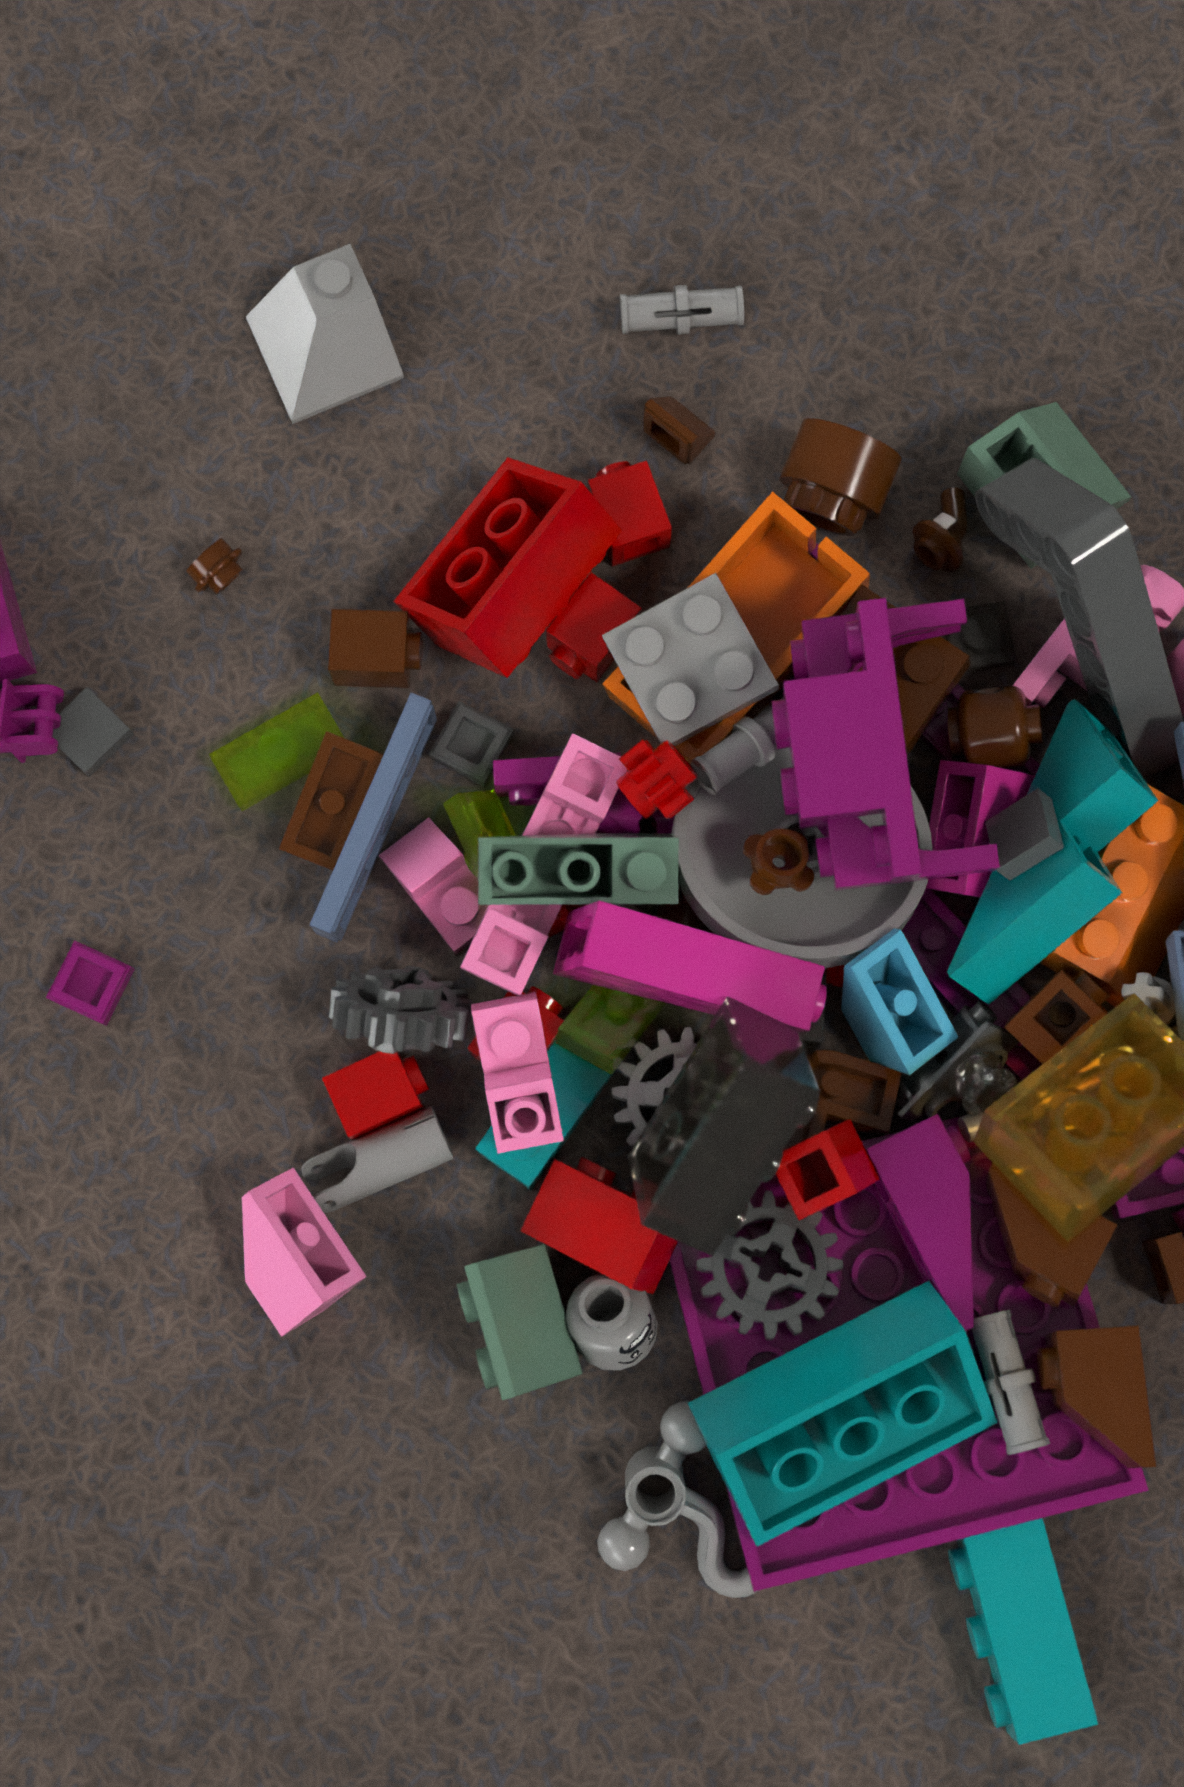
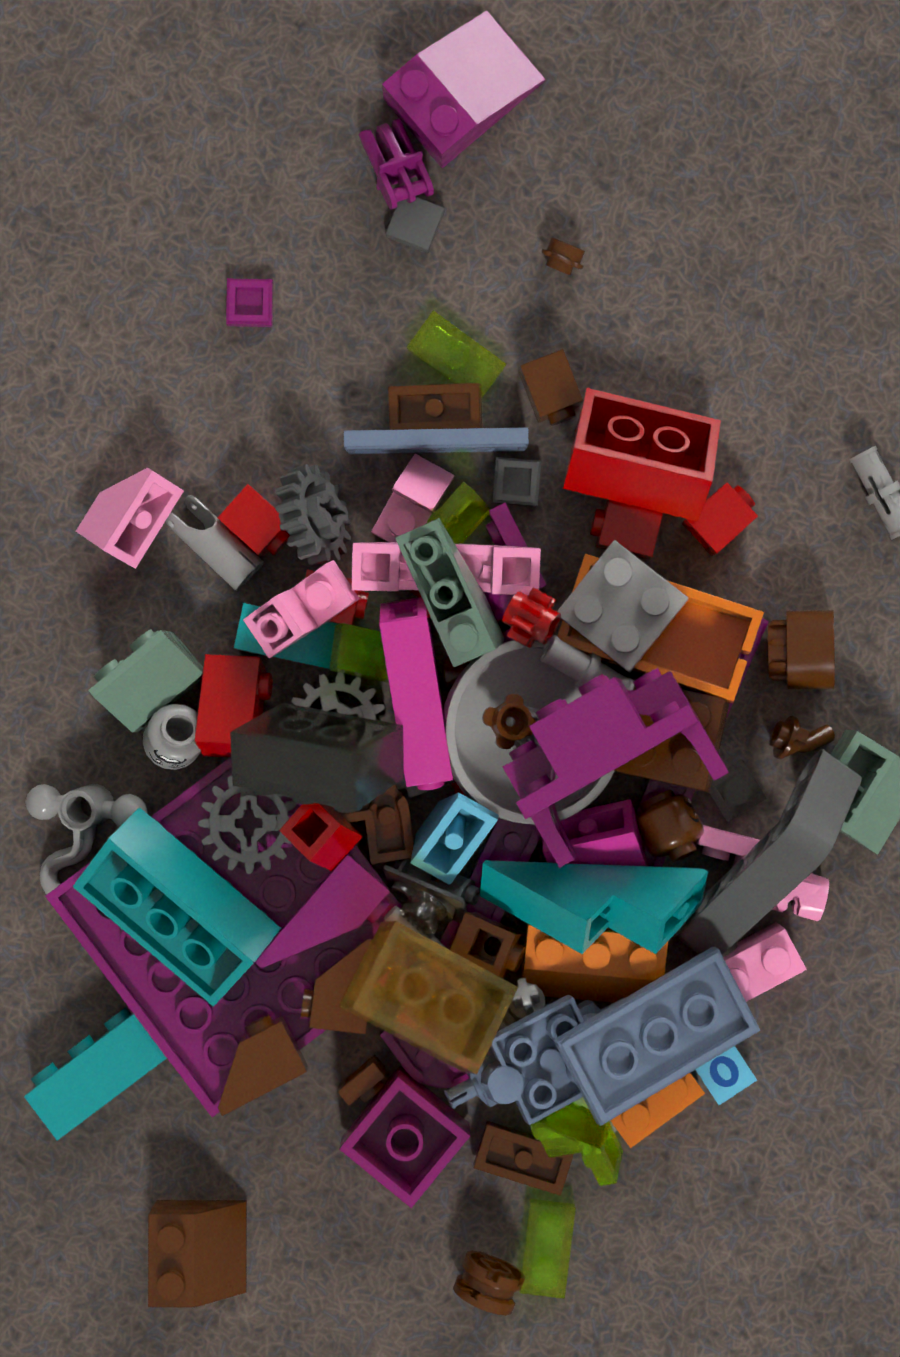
camera: 65 degrees right, 10 degrees up
(324, 335) = (757, 254): light grey slope -> none
(676, 428) = (797, 525): reddish brown slope -> none
(1009, 1382) = (240, 1004): light grey pin -> none
(1025, 833) = (595, 874): dark grey tile -> none

